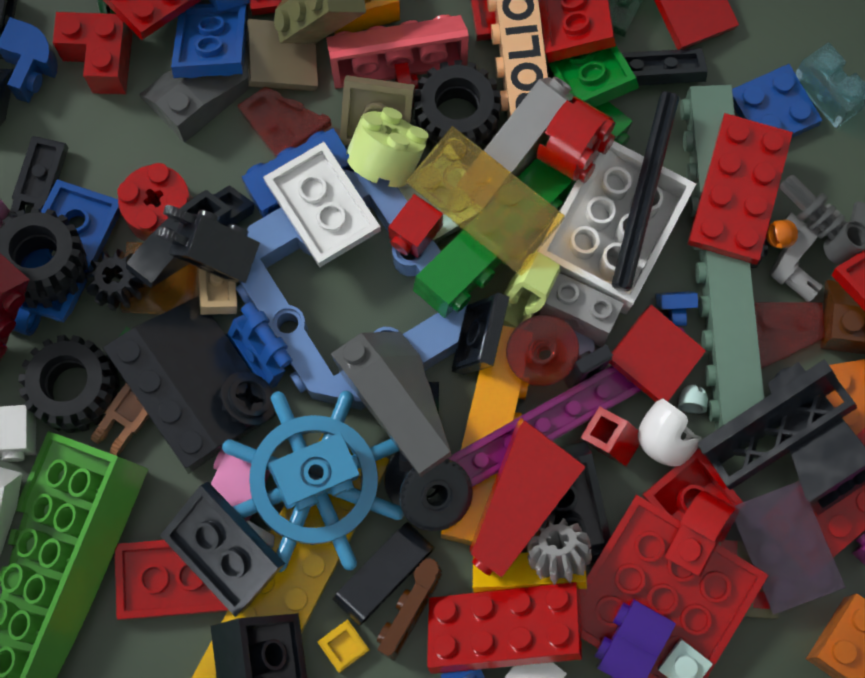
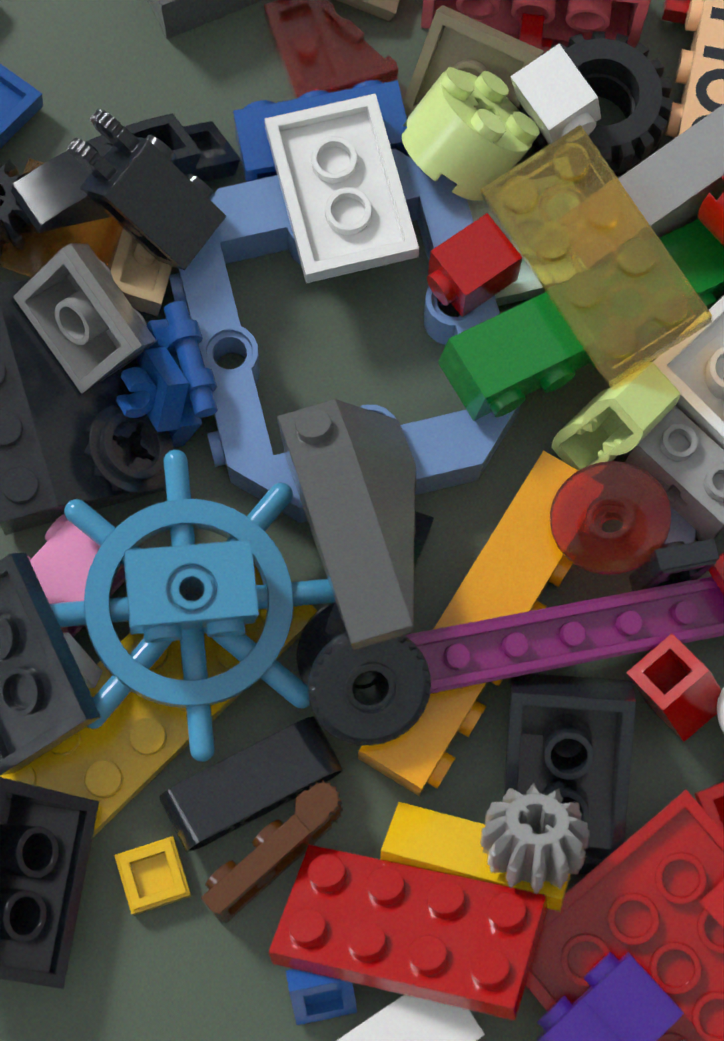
camera: 15 degrees right, 0 degrees up
(144, 190) = (78, 86): red brick -> none
(195, 330) = (84, 316): none -> light grey slope
(252, 359) = (157, 390): none -> blue tile
(432, 111) = (556, 95): none -> white brick
(480, 334) = (521, 463): black tile -> none
(524, 494) = (507, 731): red slope -> none

